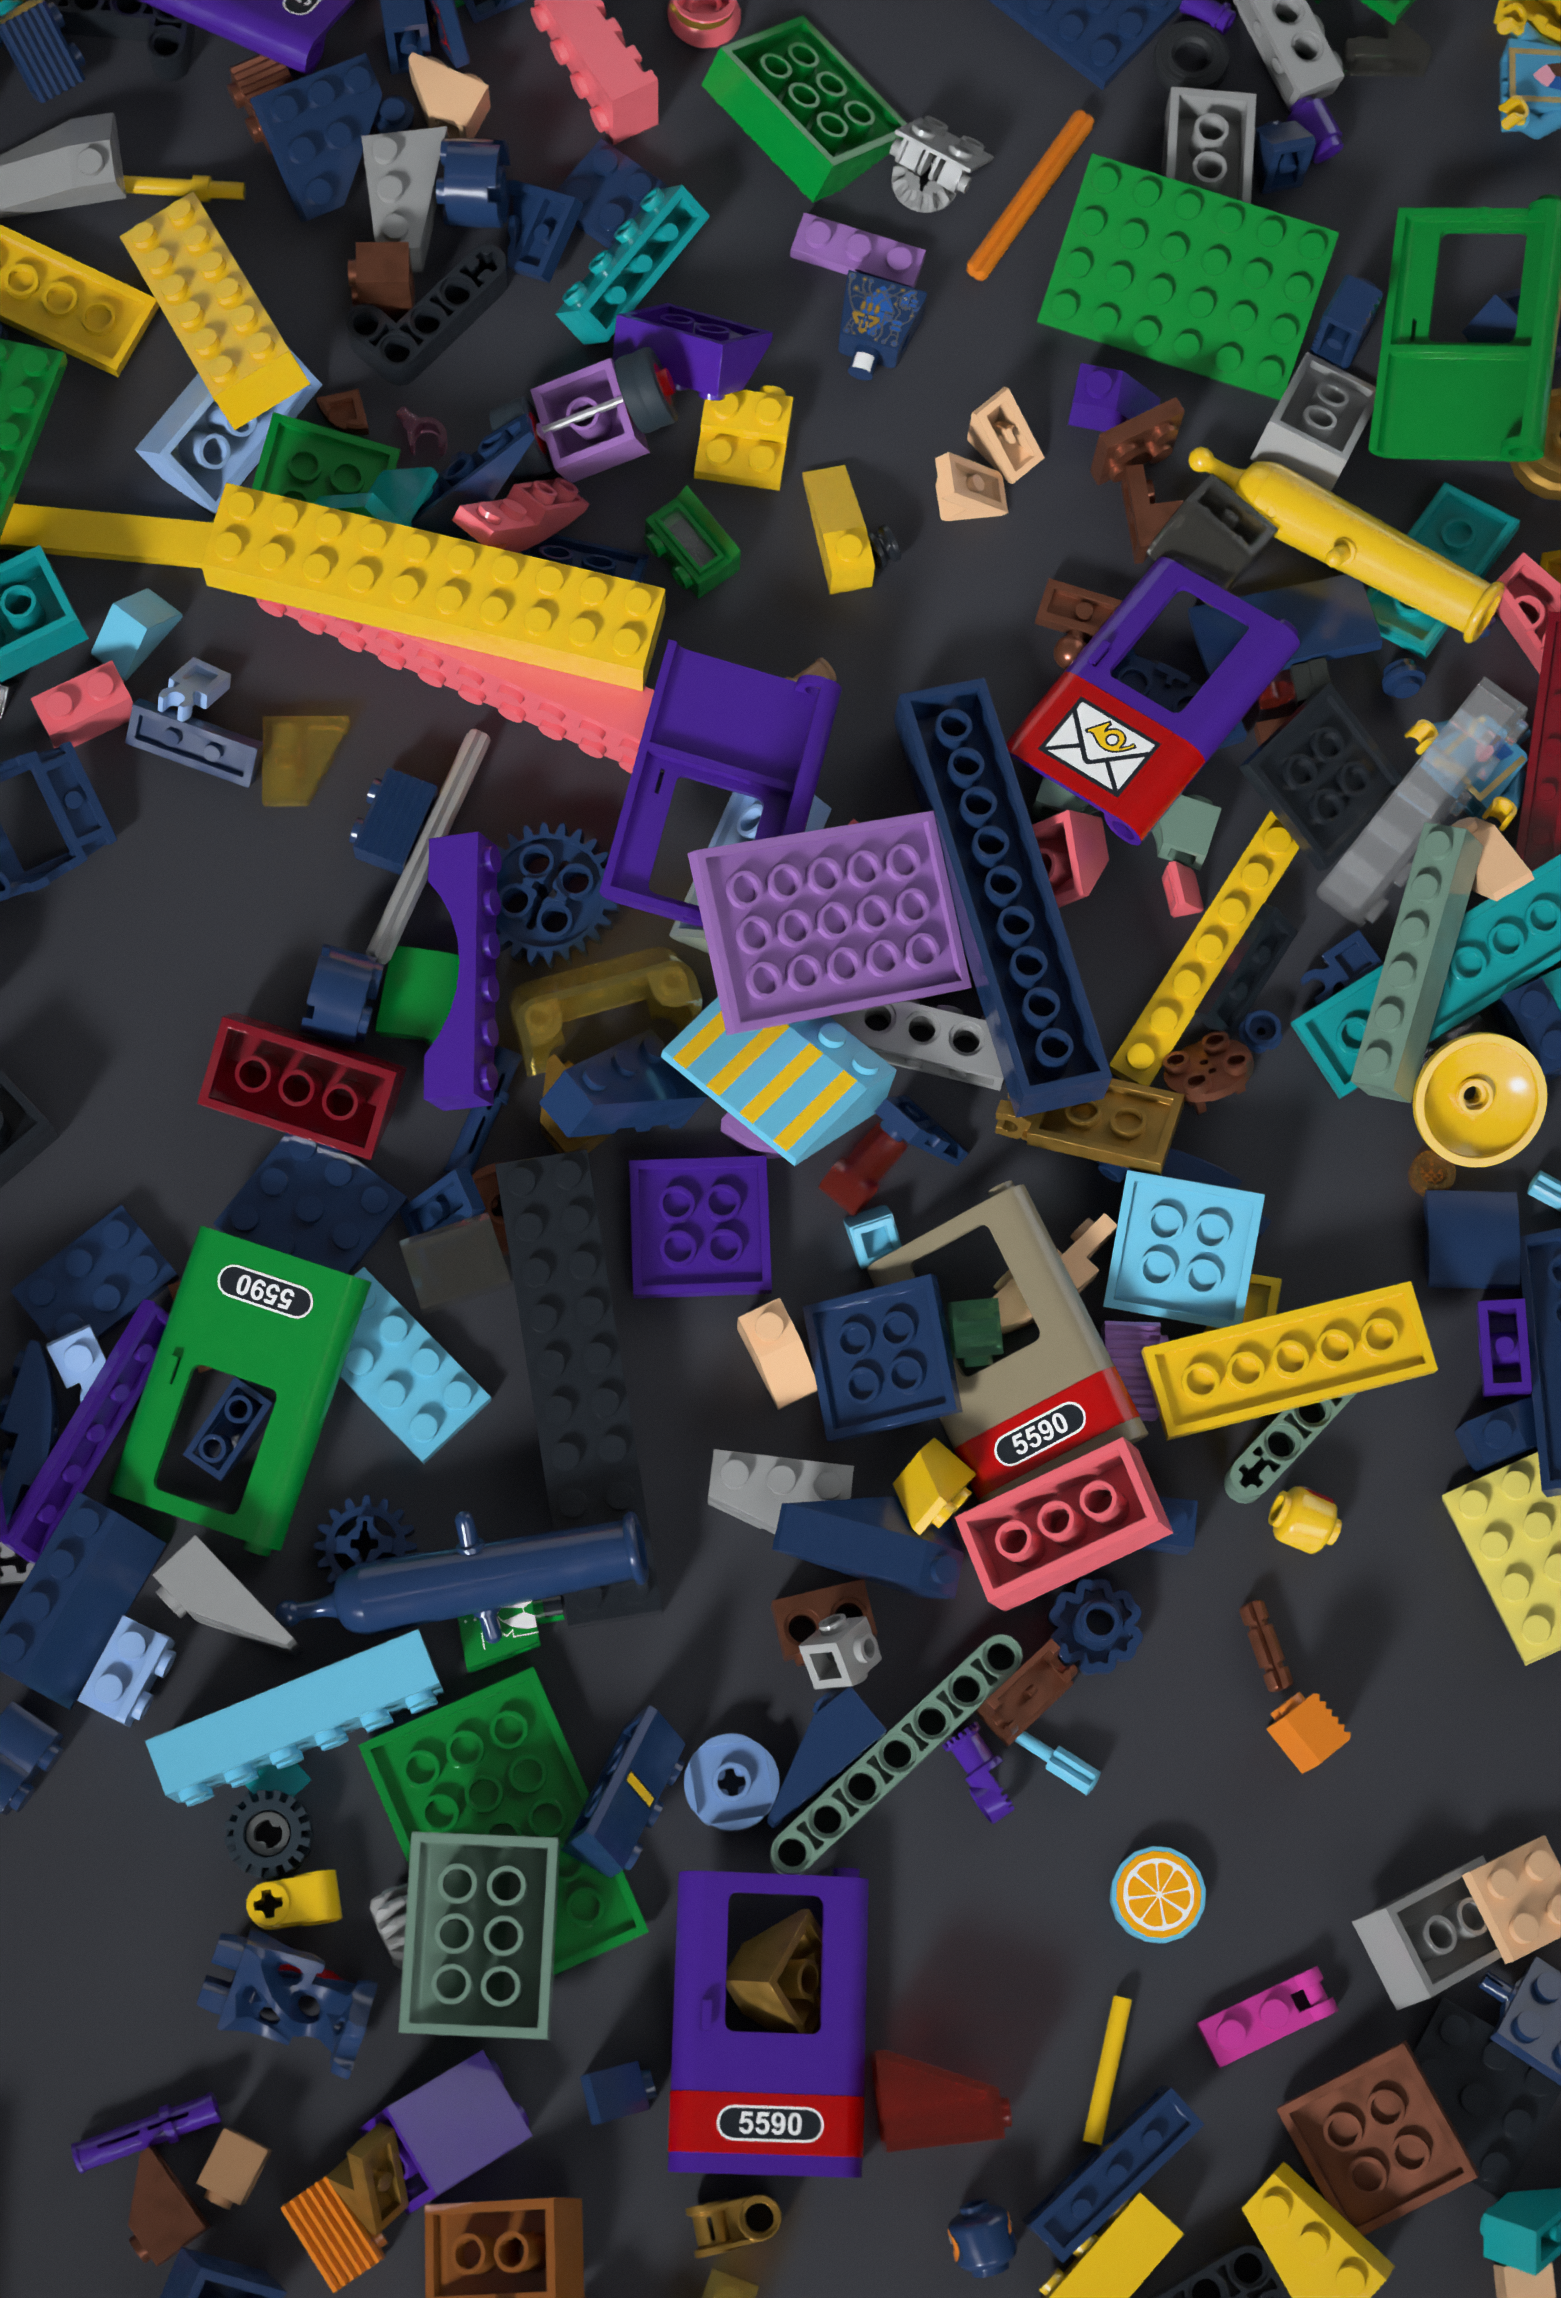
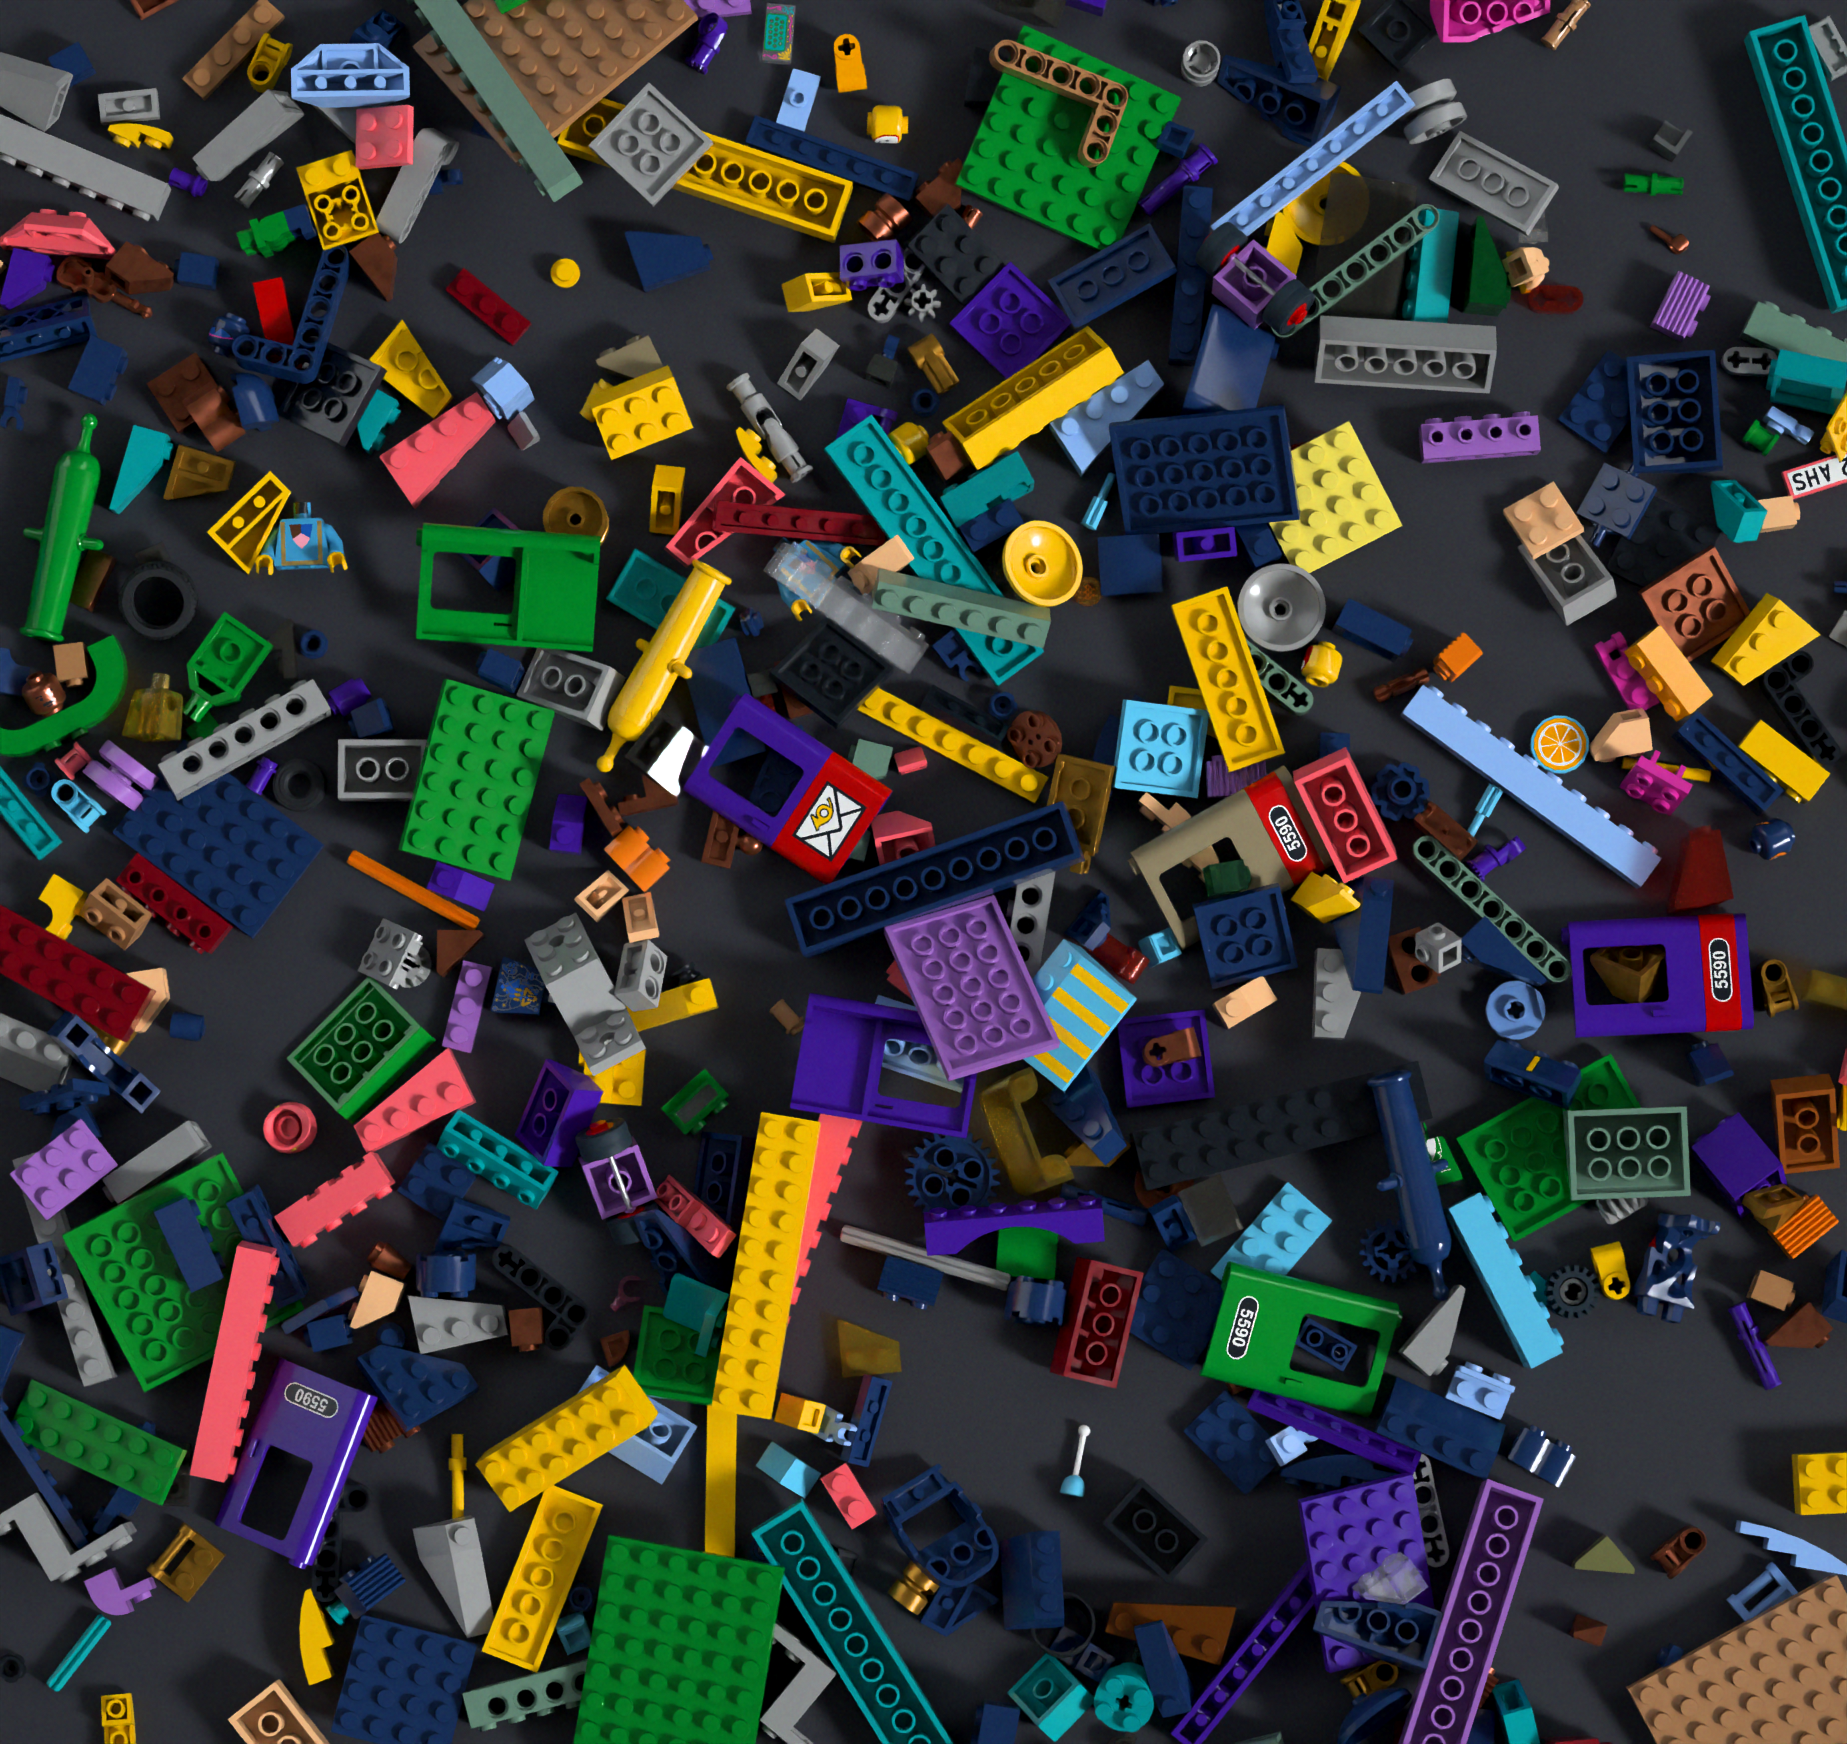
camera: 90 degrees left, 10 degrees up
(60, 1035) = (1073, 1484): none -> hinge
(215, 646) = (799, 1413): none -> yellow brick
(504, 116) = (388, 1260): none -> copper cone
(714, 1235) = (1177, 1047): none -> copper piece
(724, 170) = (422, 1100): none -> coral wedge
(863, 392) = (584, 994): none -> light grey bracket
(889, 466) = (640, 975): none -> light grey brick
(944, 236) = (454, 946): none -> copper slope
(1033, 251) = (460, 886): none -> dark purple slope
(1058, 493) = (637, 857): none -> orange brick
(1083, 2045) = (1656, 785): none -> dark pink plate
(1090, 1840) = (1530, 786): none -> light blue brick
(1167, 1998) = (1622, 735): none -> light nougat slope
(1267, 2082) = (1668, 673): none -> light orange brick
(1357, 1599) = (1373, 631): none -> dark blue window
(1392, 82) = (304, 644): none -> dark blue plate
(1424, 1443) = (1294, 591): none -> light grey dish

